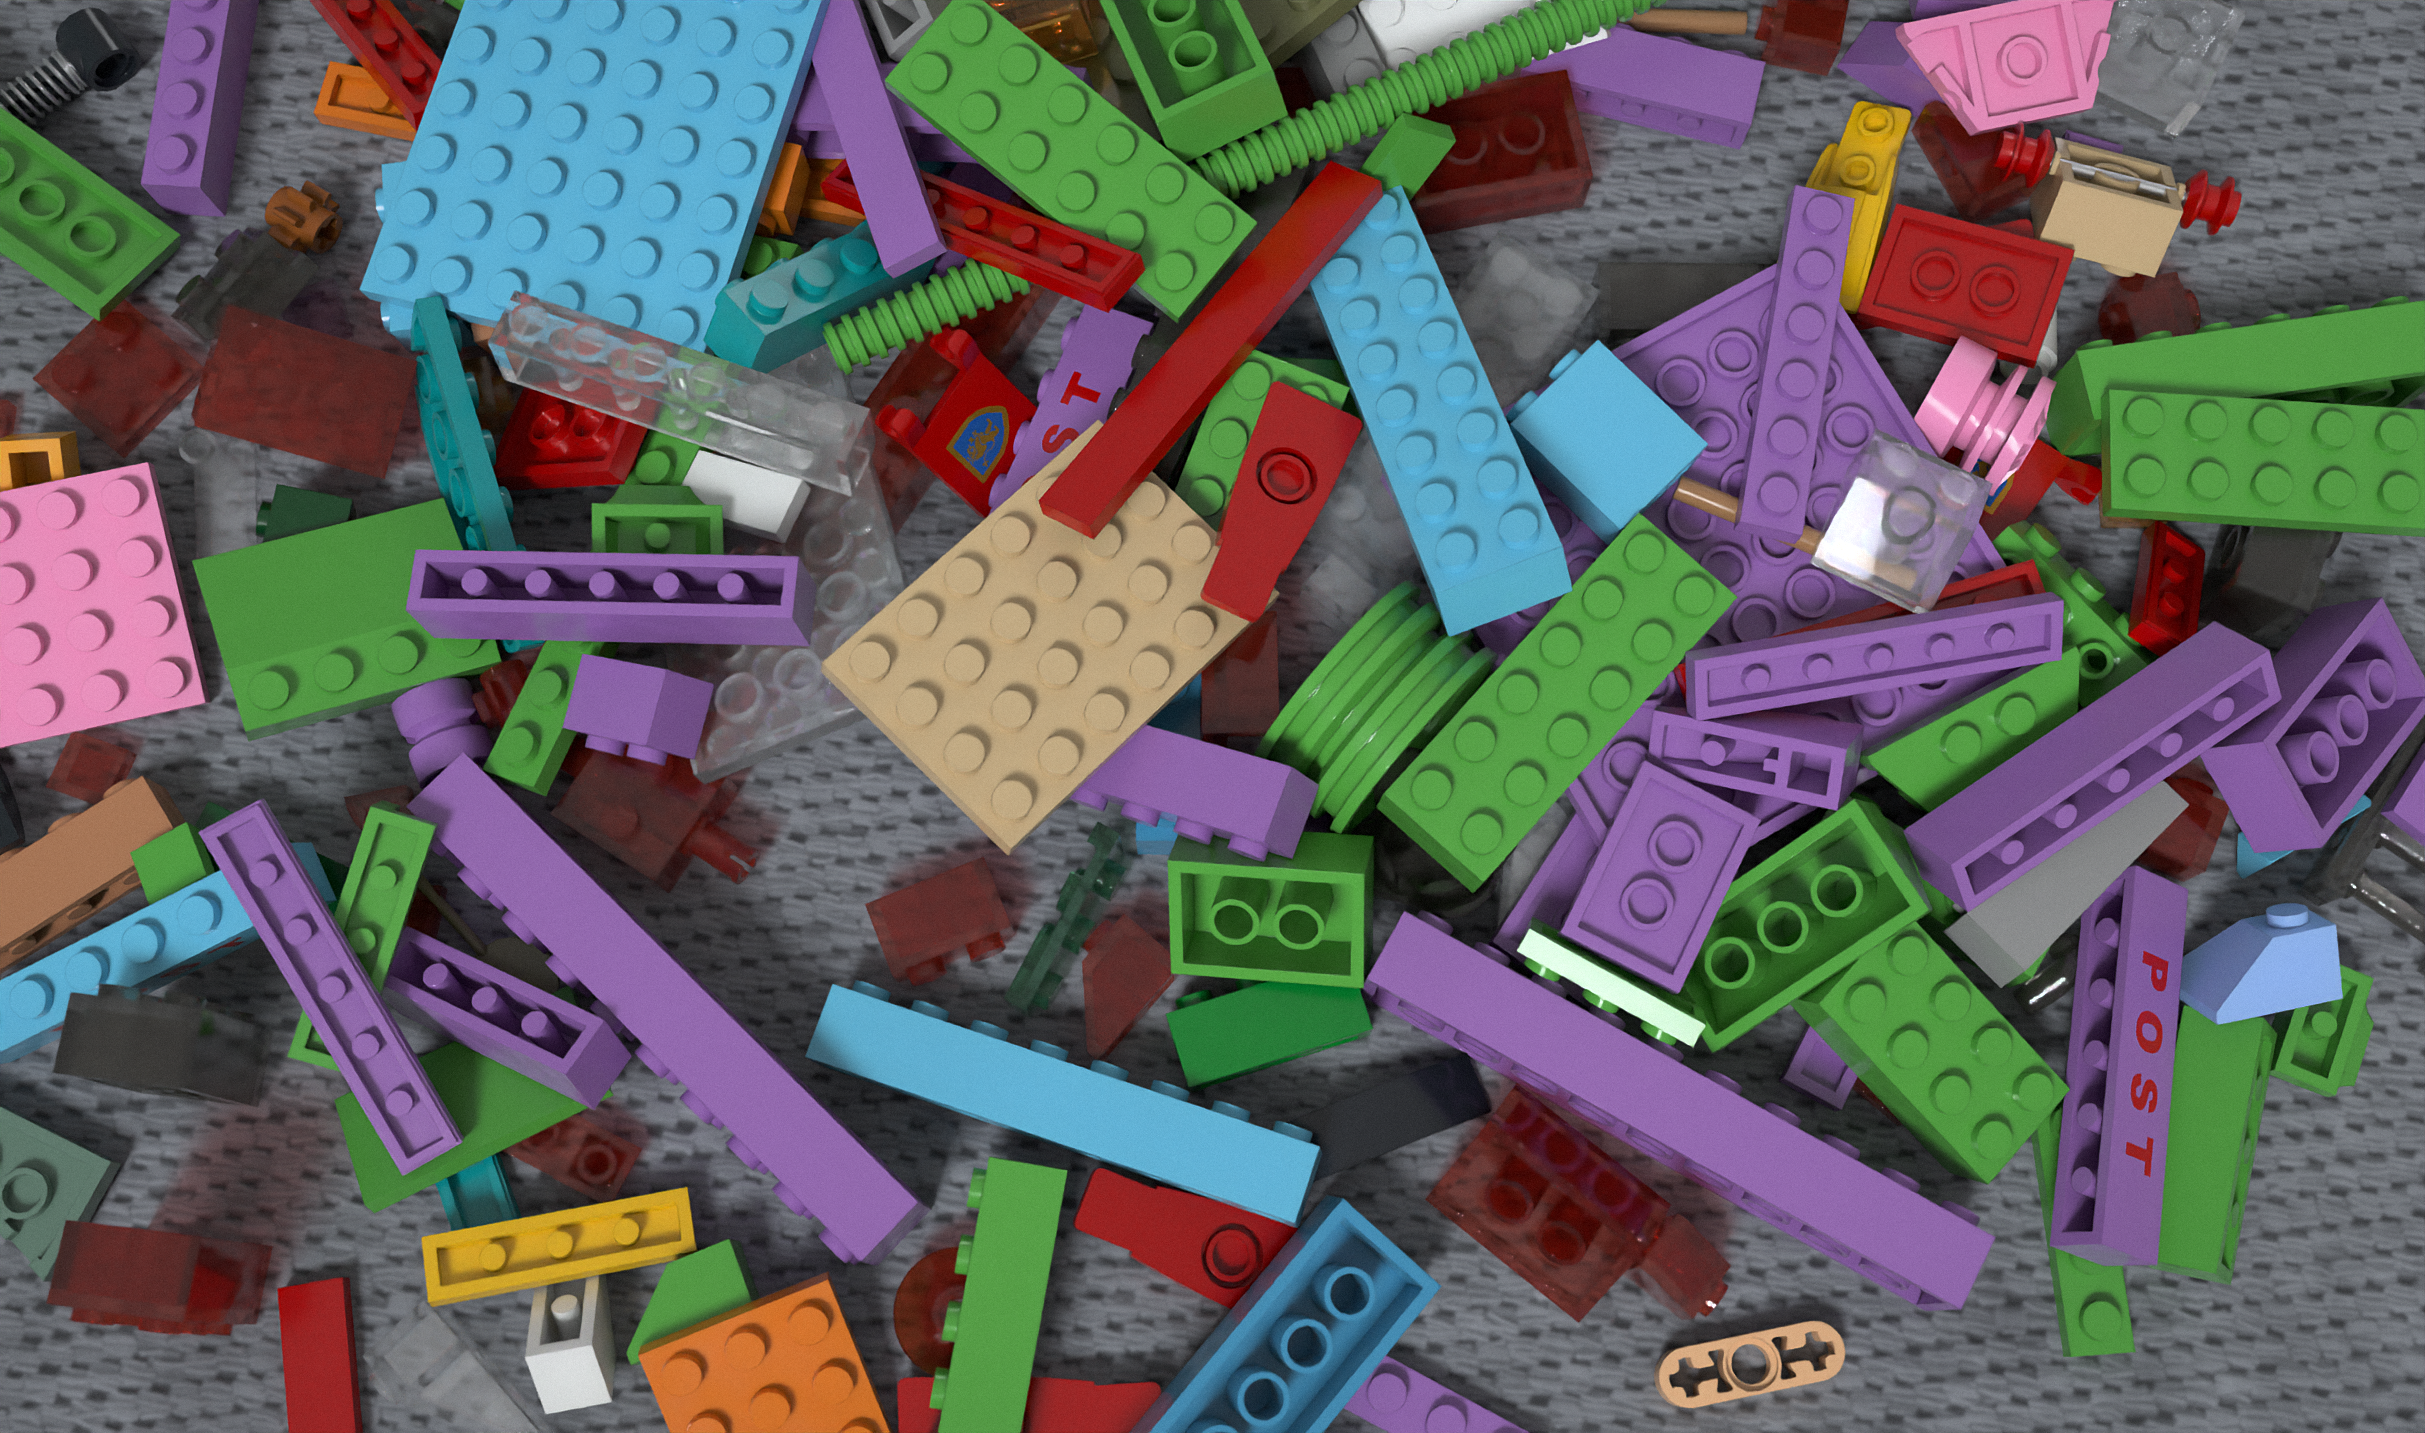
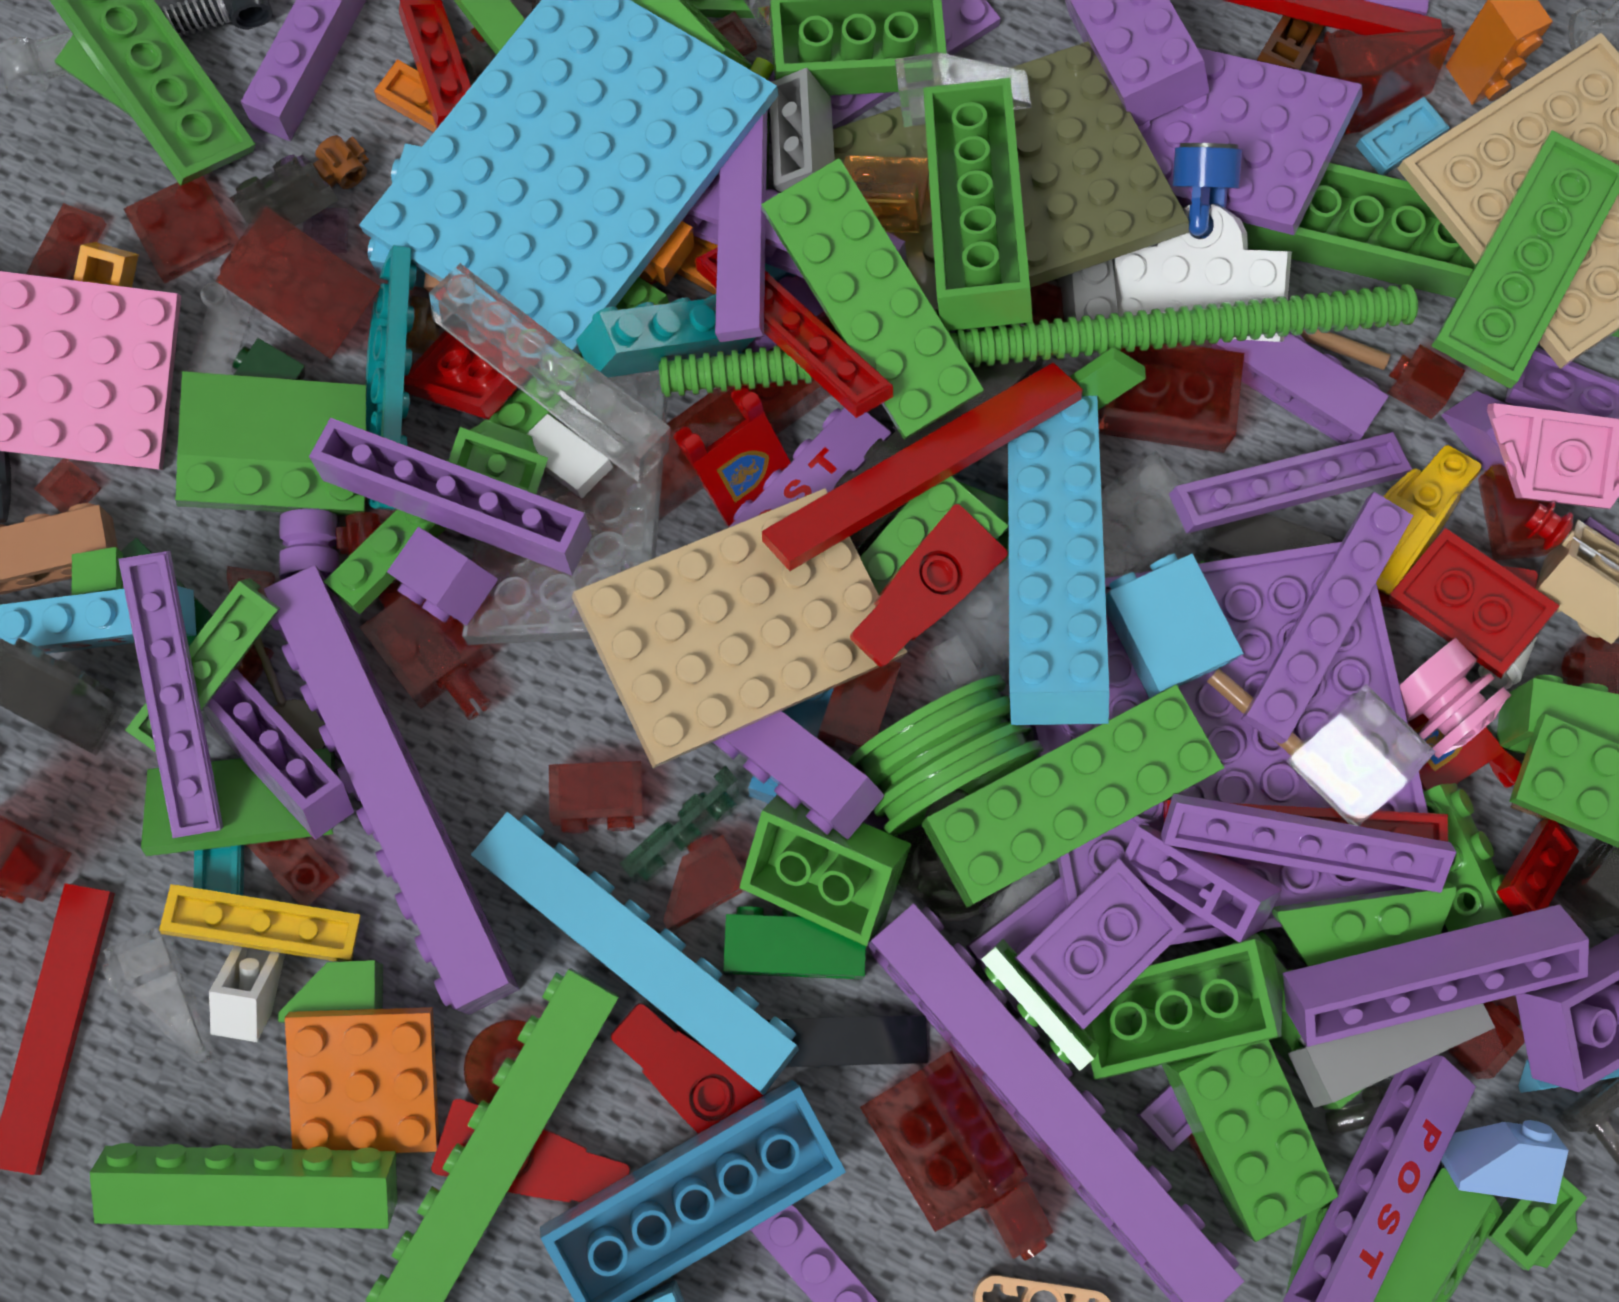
camera: 15 degrees right, 0 degrees up
(1680, 213) = (1289, 482): none -> medium lavender plate

